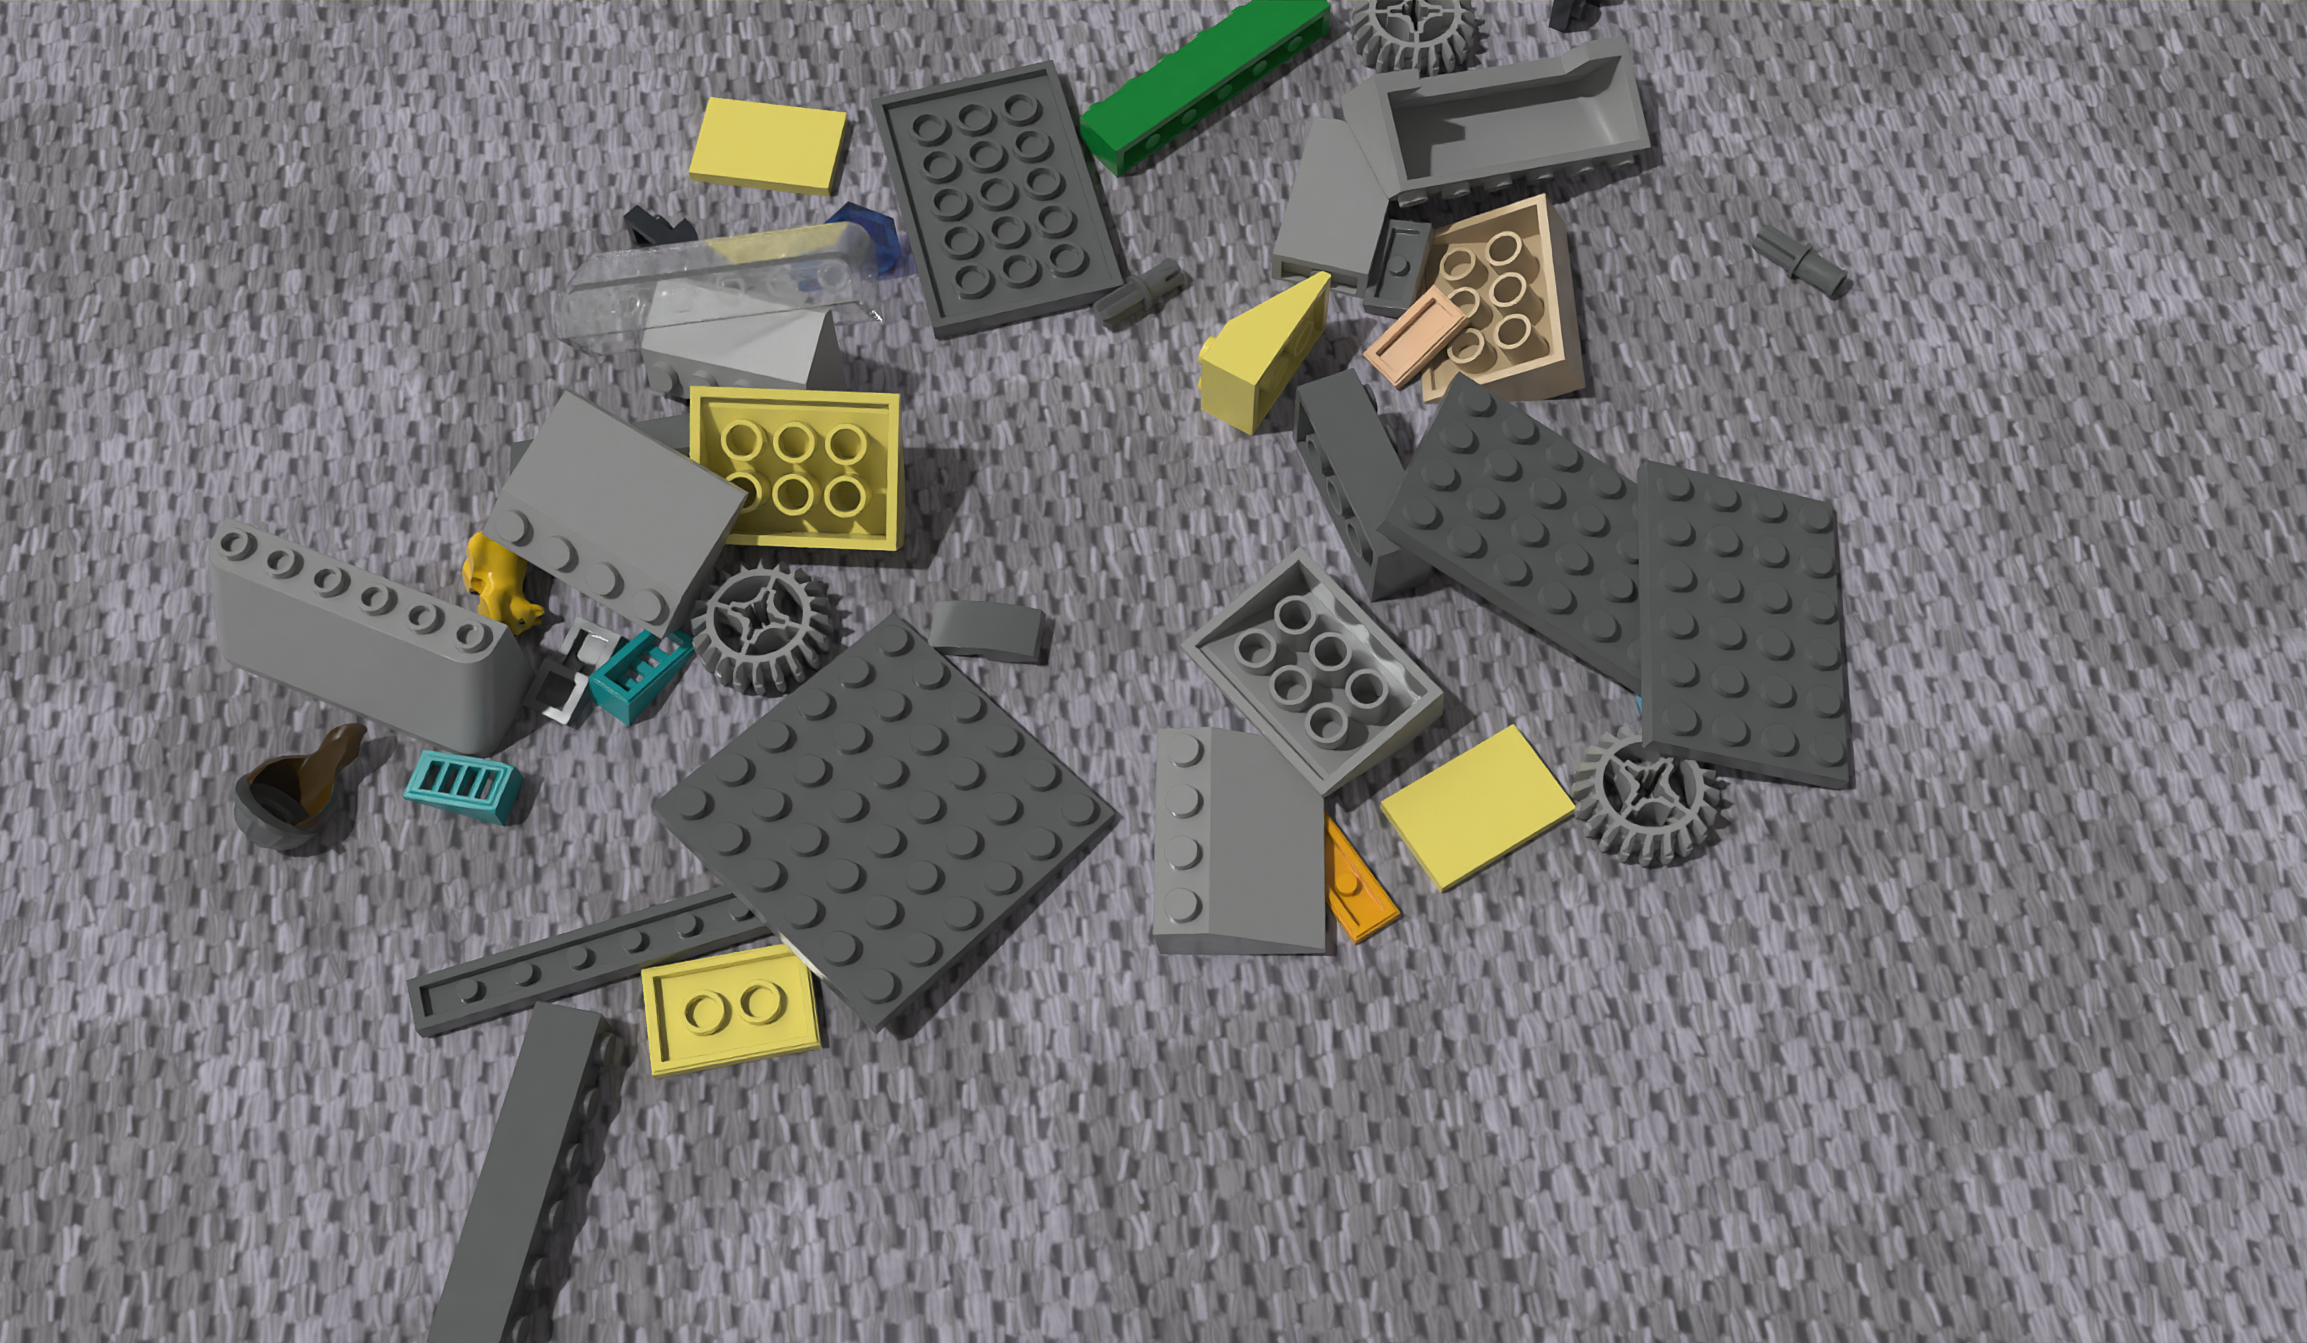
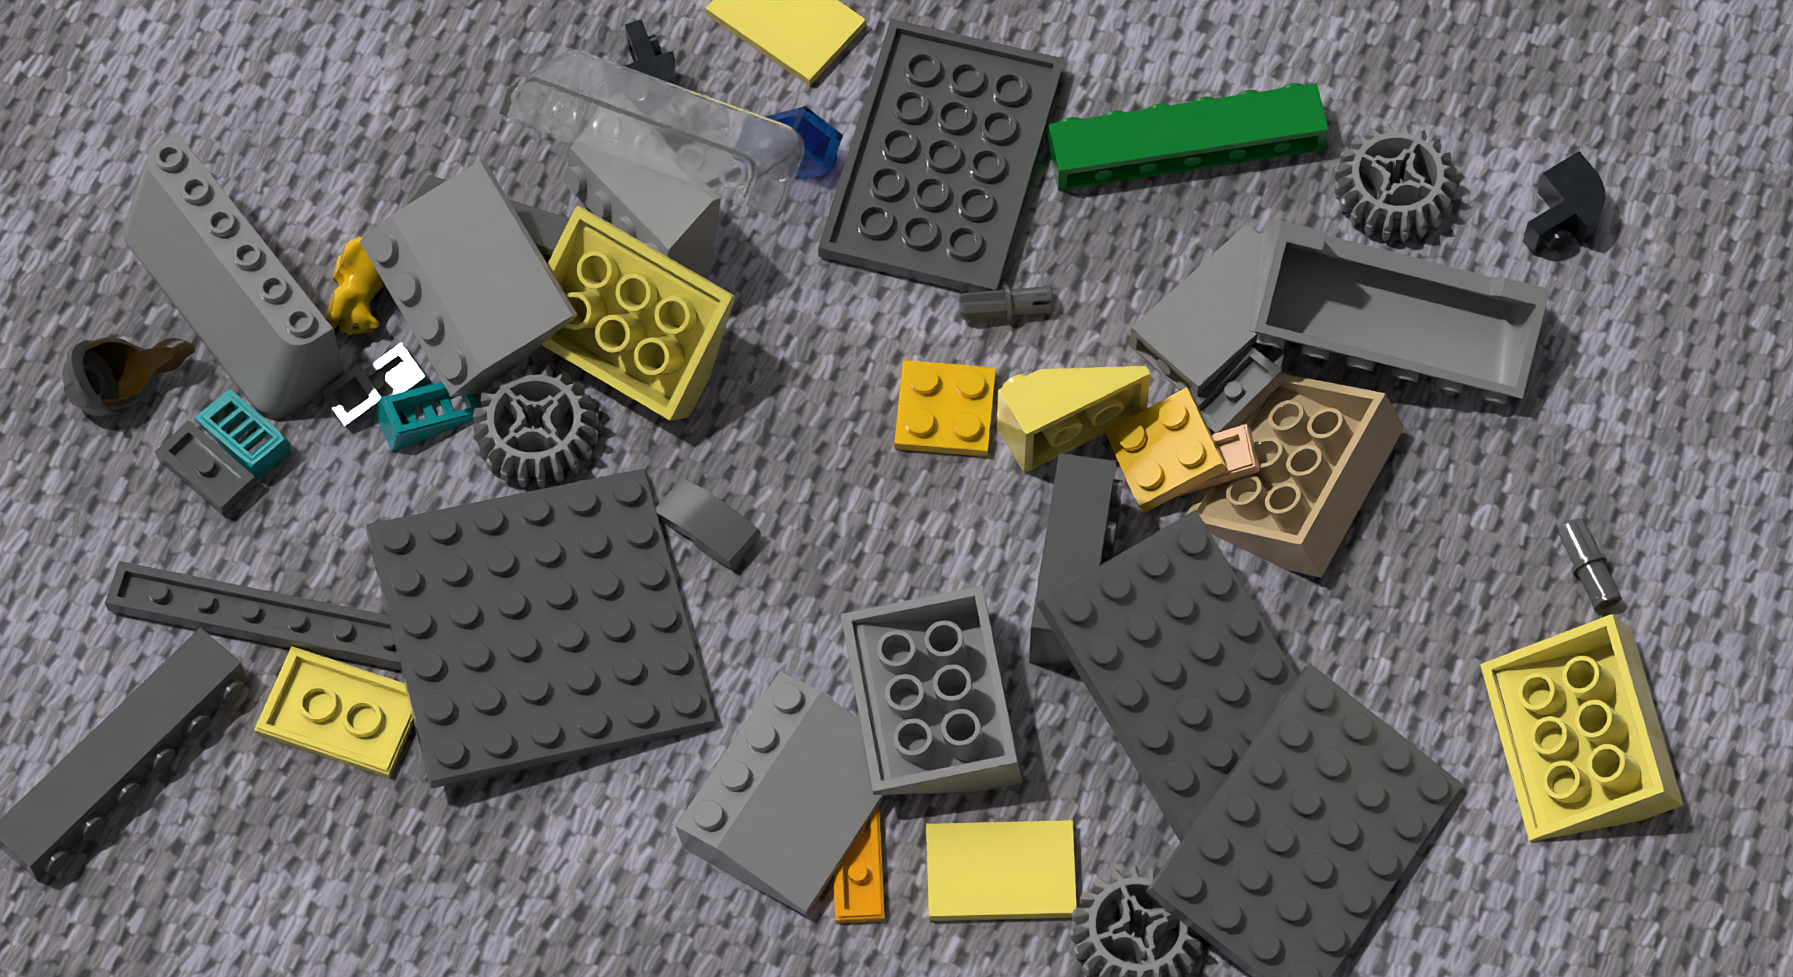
camera: 30 degrees right, 0 degrees up
(444, 839) = (206, 467): none -> dark grey plate
(1142, 414) = (945, 408): none -> yellow plate
(1377, 340) = (1165, 450): none -> yellow plate
(1900, 403) = (1581, 731): none -> light yellow slope

